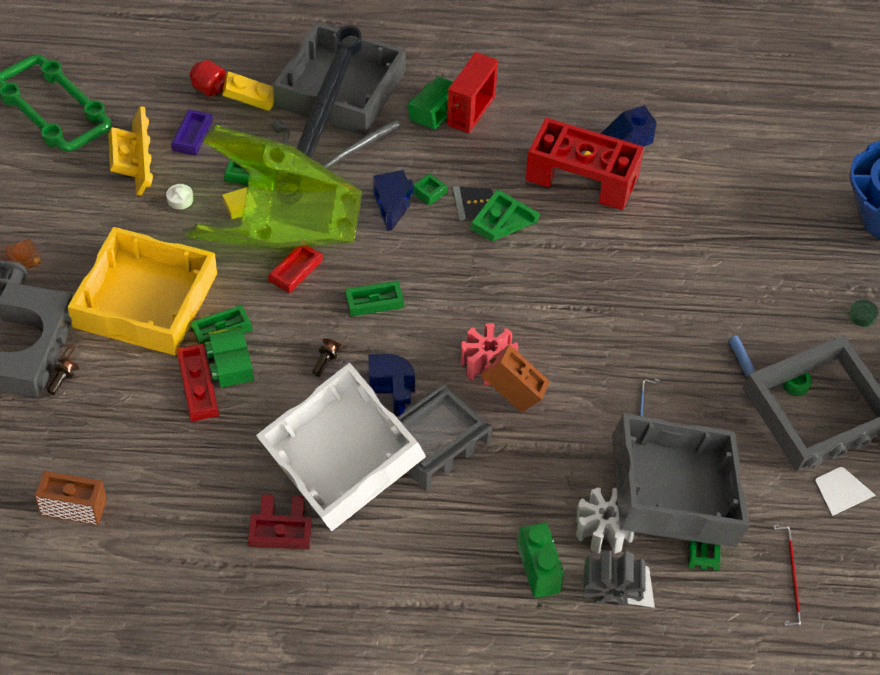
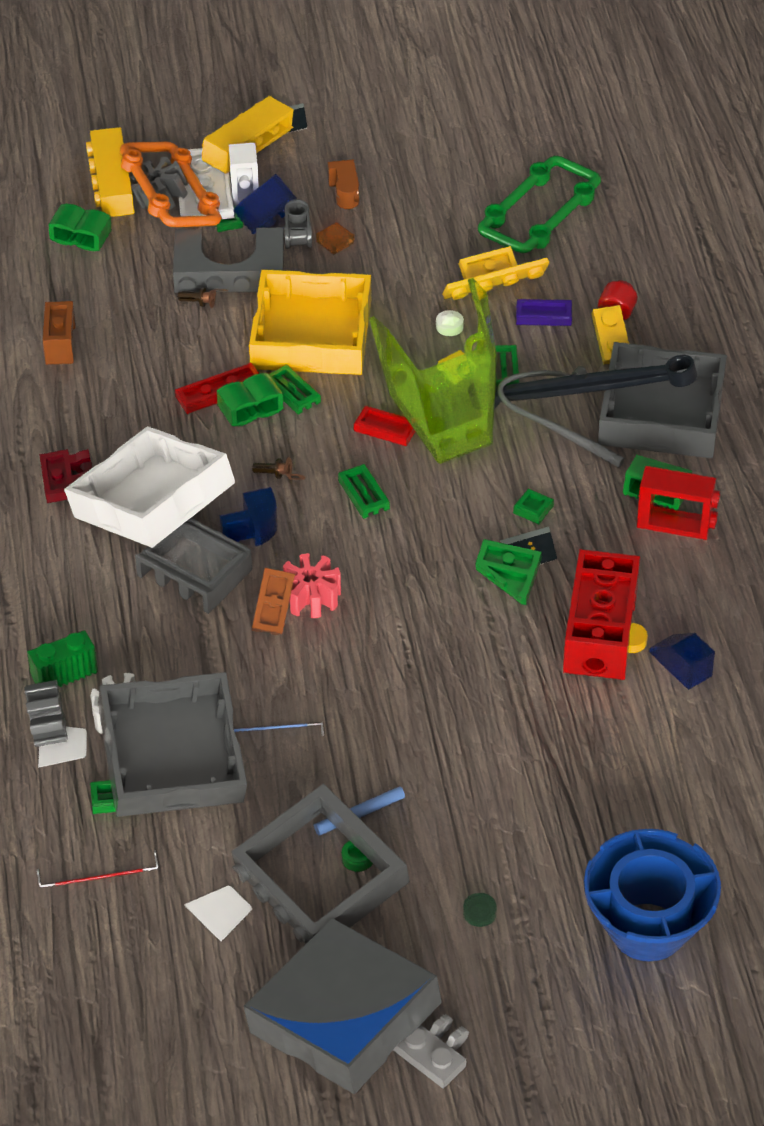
camera: 80 degrees right, 5 degrees down
(392, 196) = (500, 474): clear blue slope -> none

